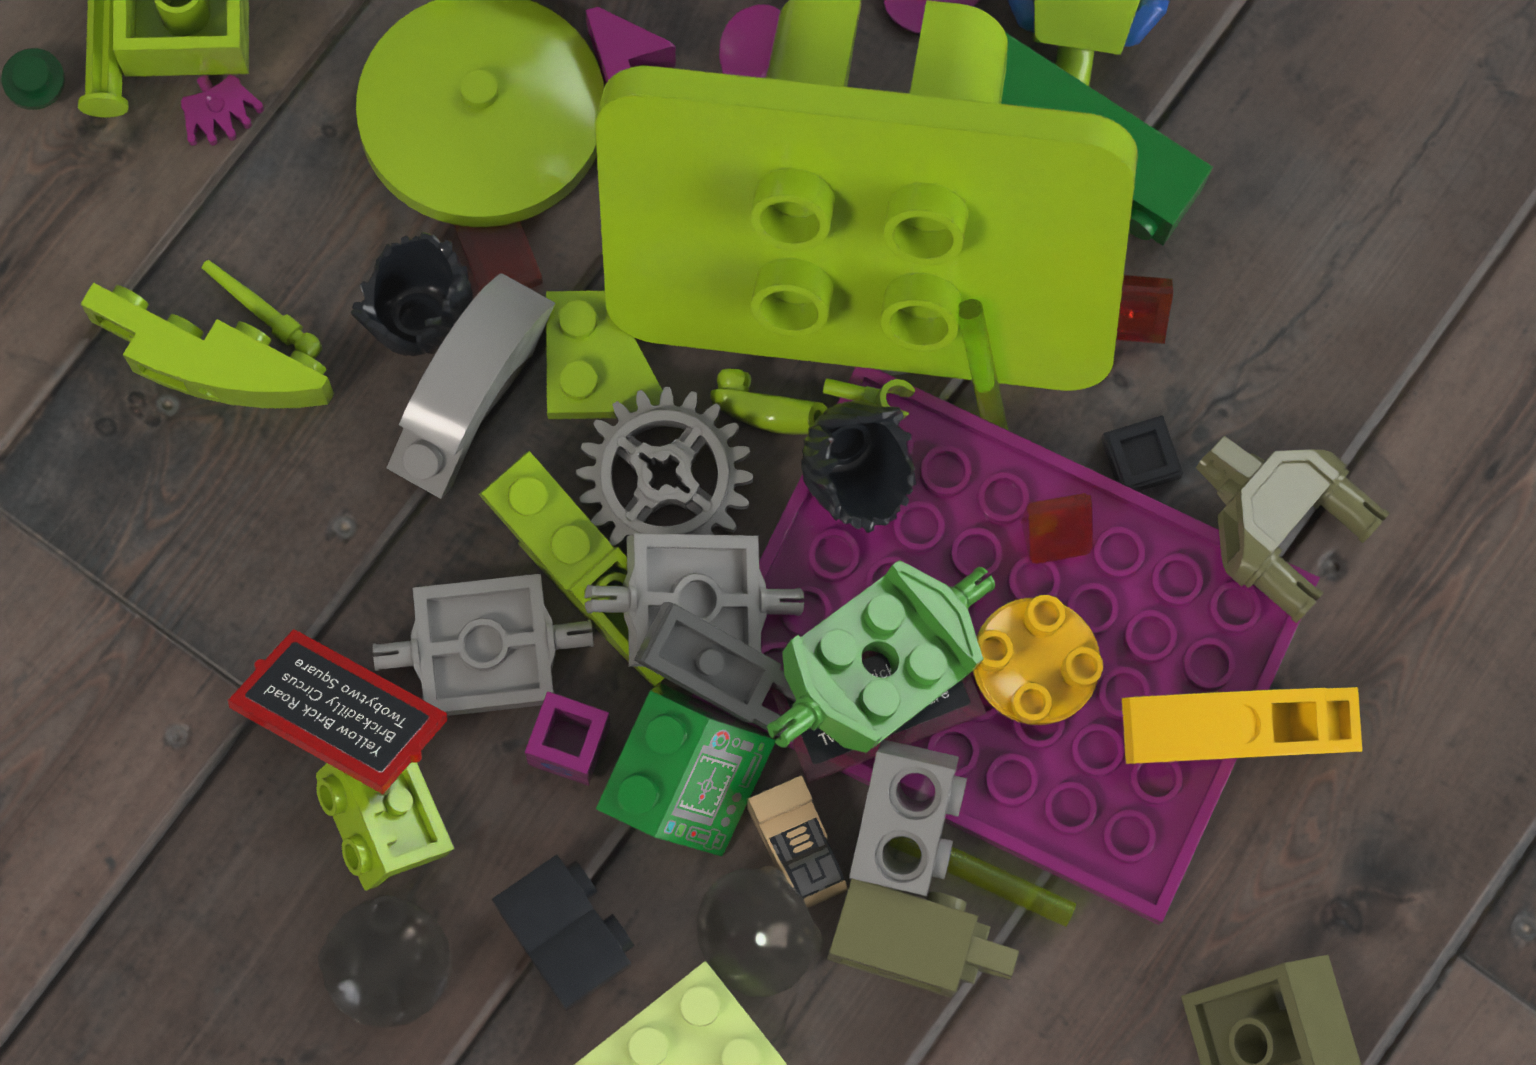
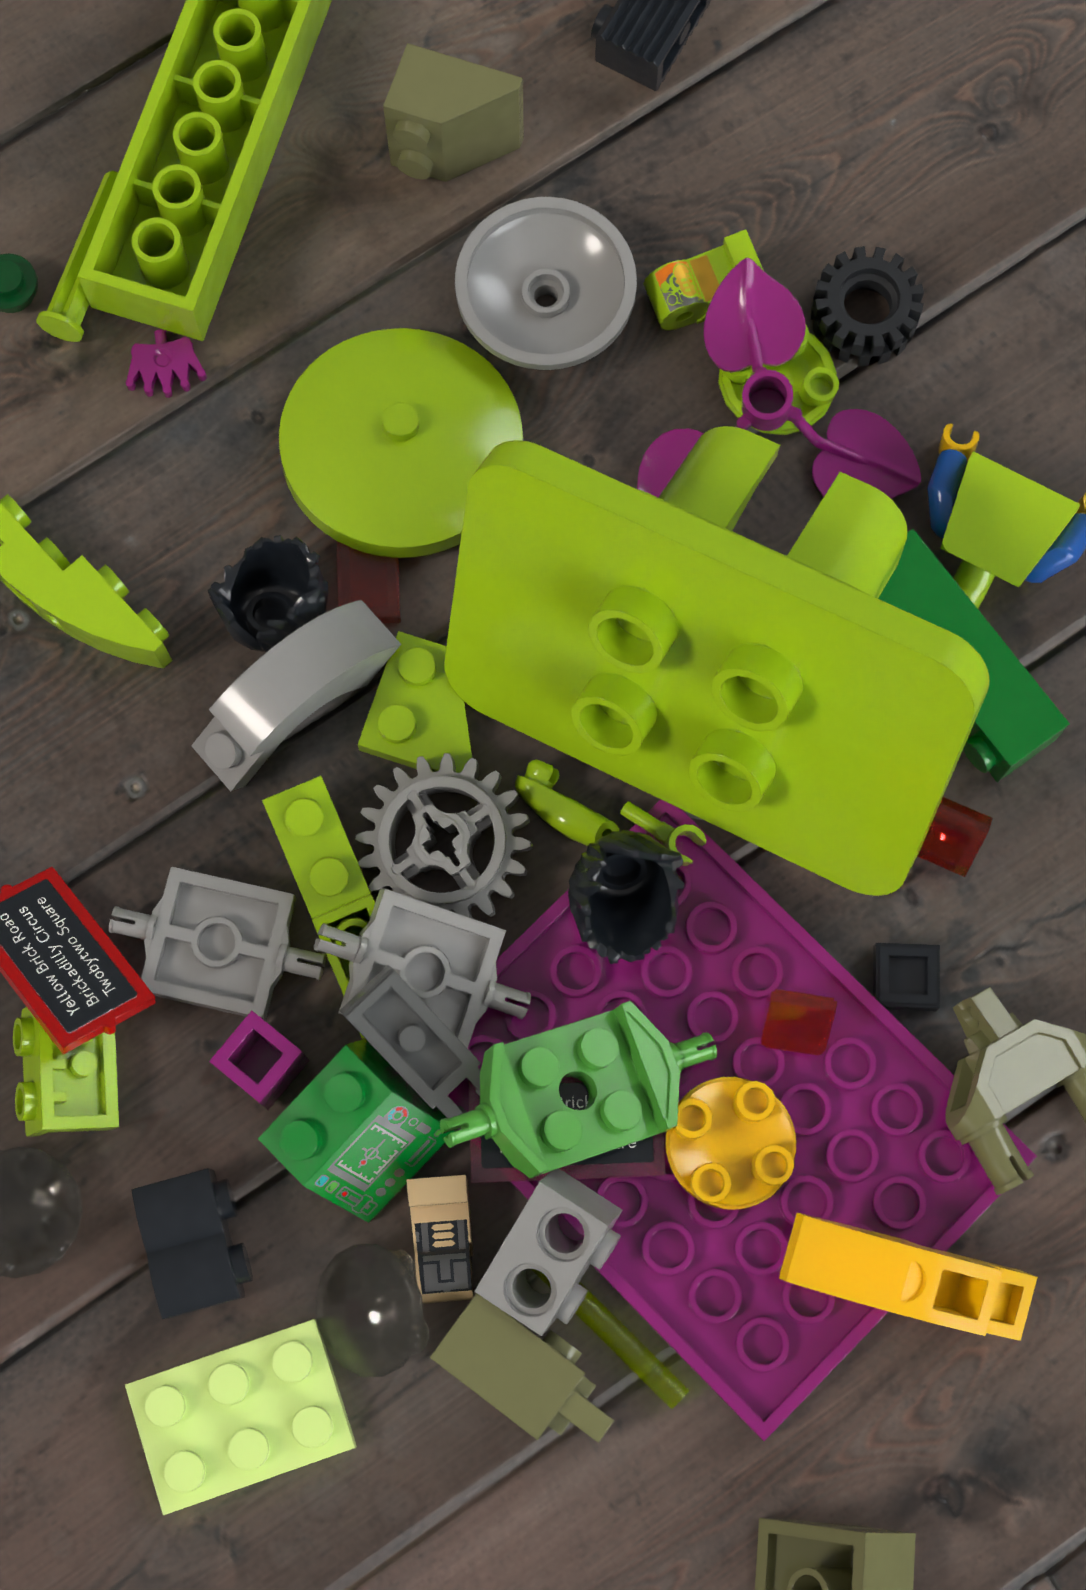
camera: 25 degrees right, 0 degrees up
(283, 327) = (147, 583): lime piece -> none
(625, 45) = (555, 427): magenta slope -> none
(981, 362) = (777, 837): clear neon green bar -> none

